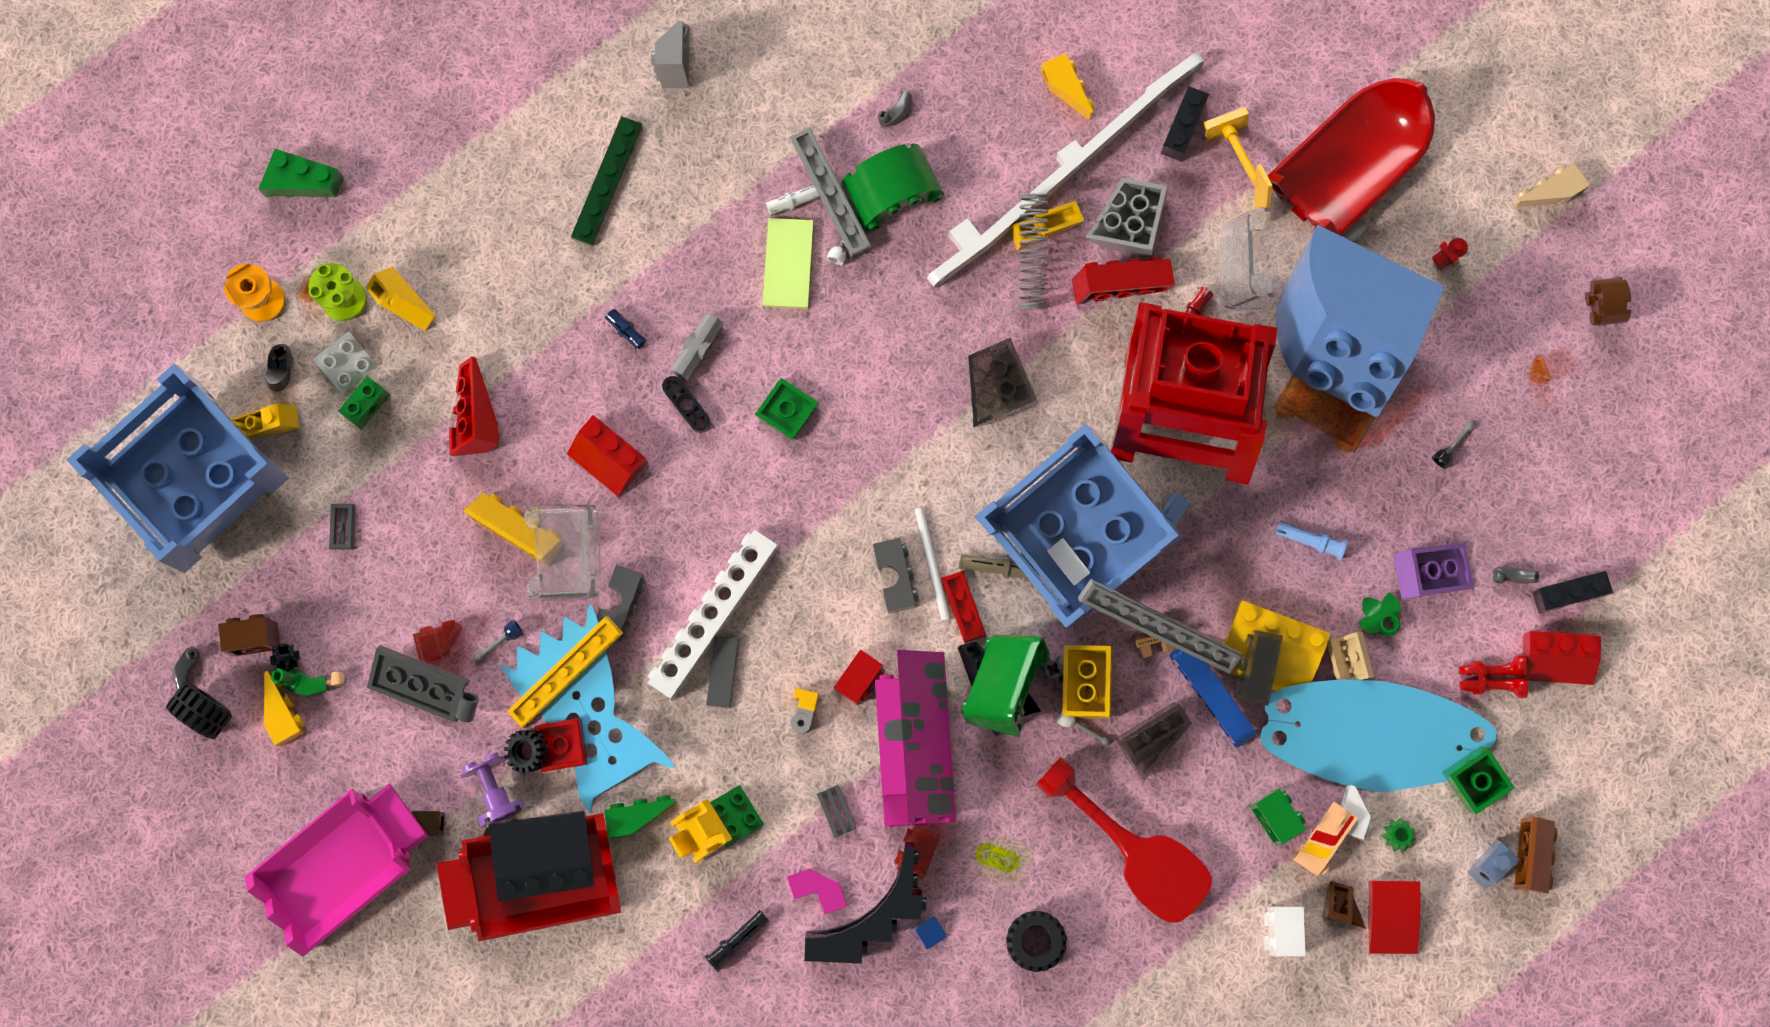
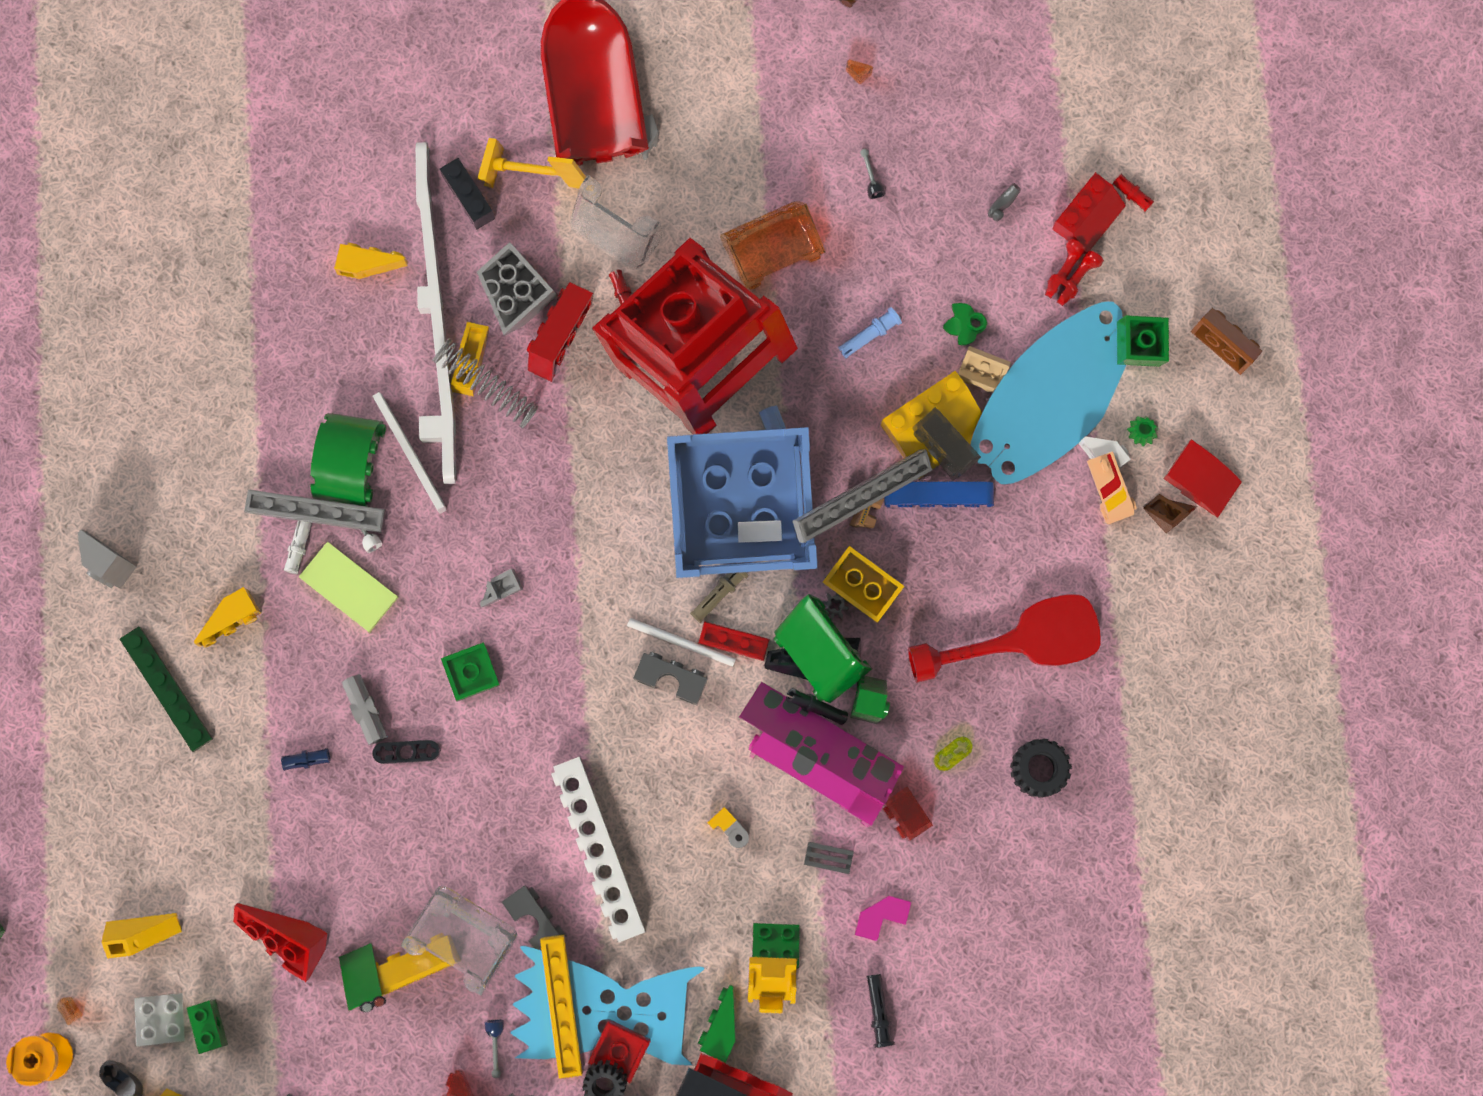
camera: 65 degrees left, 0 degrees up
(337, 292) = (93, 984): lime piece -> none
(479, 496) = (361, 979): none -> green piece
(606, 456) = (402, 848): red slope -> none
(701, 186) = (229, 614): none -> yellow slope
(722, 672) = (651, 874): dark grey tile -> none
(846, 942) = (941, 918): black arch -> none
(859, 677) = (734, 765): red brick -> none
(874, 385) = (501, 587): none -> light grey slope
(897, 112) = (287, 411): dark grey arm -> none
(930, 932) = (976, 848): blue slope -> none
(932, 233) = (409, 452): none -> white tile
(953, 705) = (809, 703): none -> black pin
(992, 753) = (870, 700): none -> green wedge
(998, 384) = (573, 486): clear smoke wedge -> none
(1066, 721) = (884, 621): hinge -> none
(1152, 738) = (942, 565): clear smoke wedge -> none
(1278, 816) = (1070, 511): green brick -> none
(1285, 931) = (1161, 568): white brick -> none
(1352, 320) = (725, 176): medium blue slope -> none
(1433, 570) = (958, 260): medium lavender slope -> none
(1450, 253) = (720, 68): red hips -> none
(1494, 864) = (1213, 373): sand blue torso -> none
(1572, 592) = (1046, 169): black arch -> none
(1610, 683) = (1133, 192): none -> red pin

